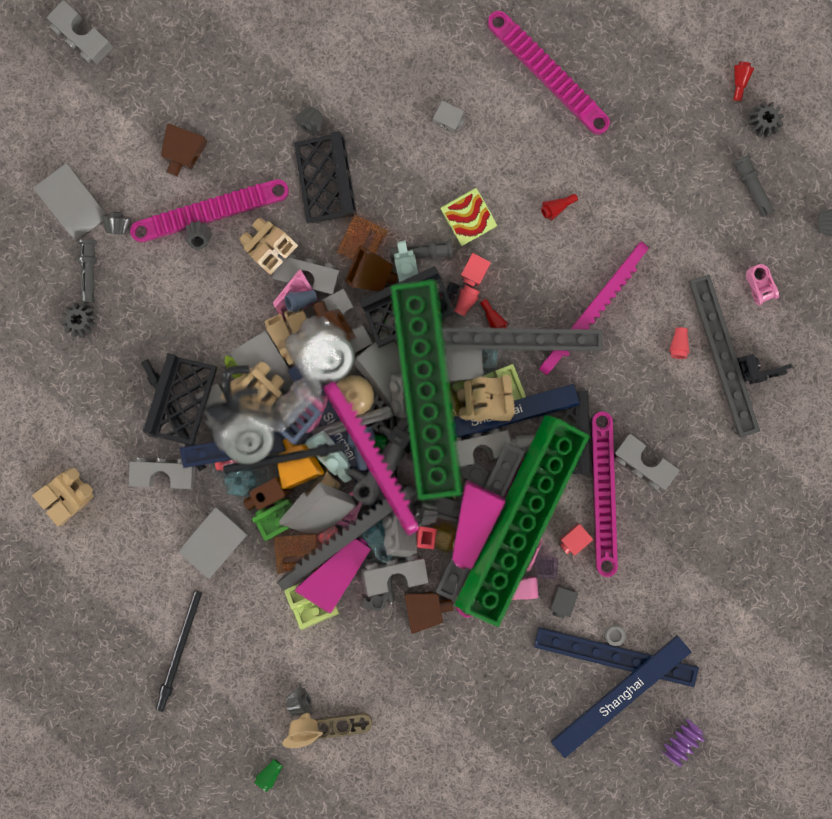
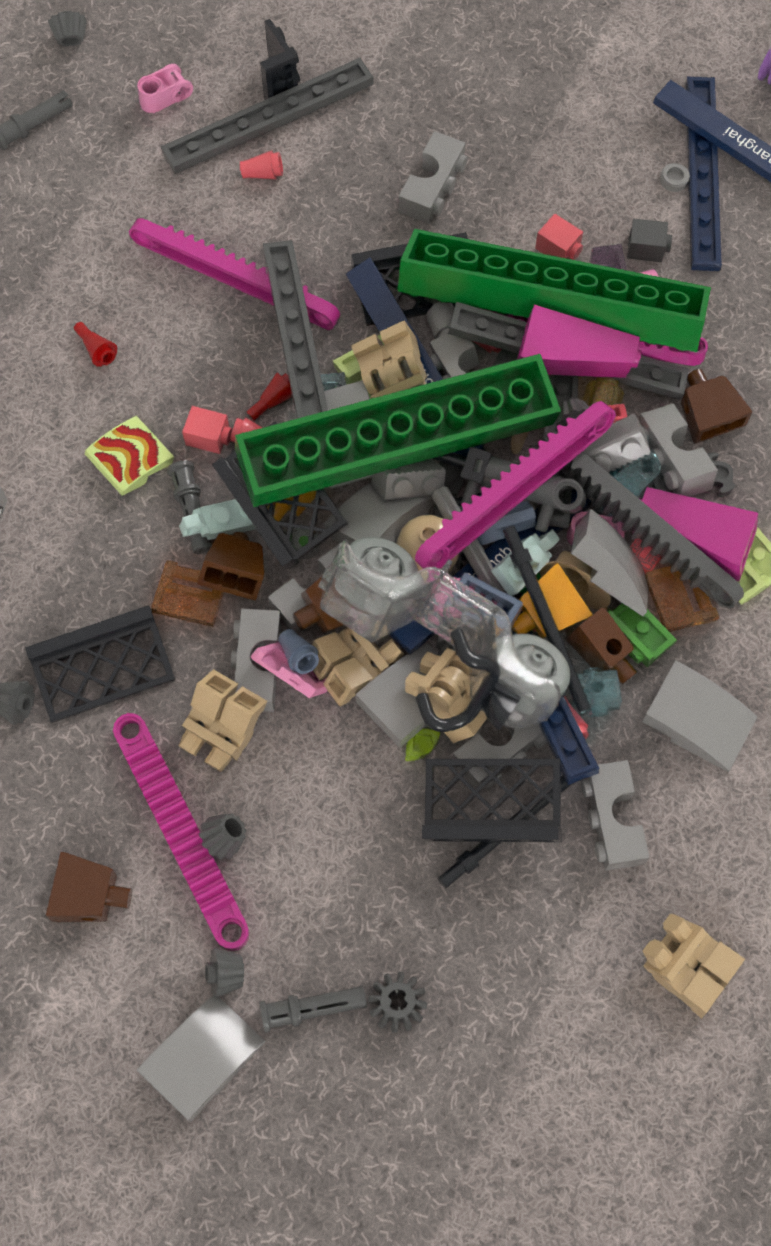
camera: 100 degrees left, 20 degrees down
(604, 494) = (497, 215): dark pink gear -> none

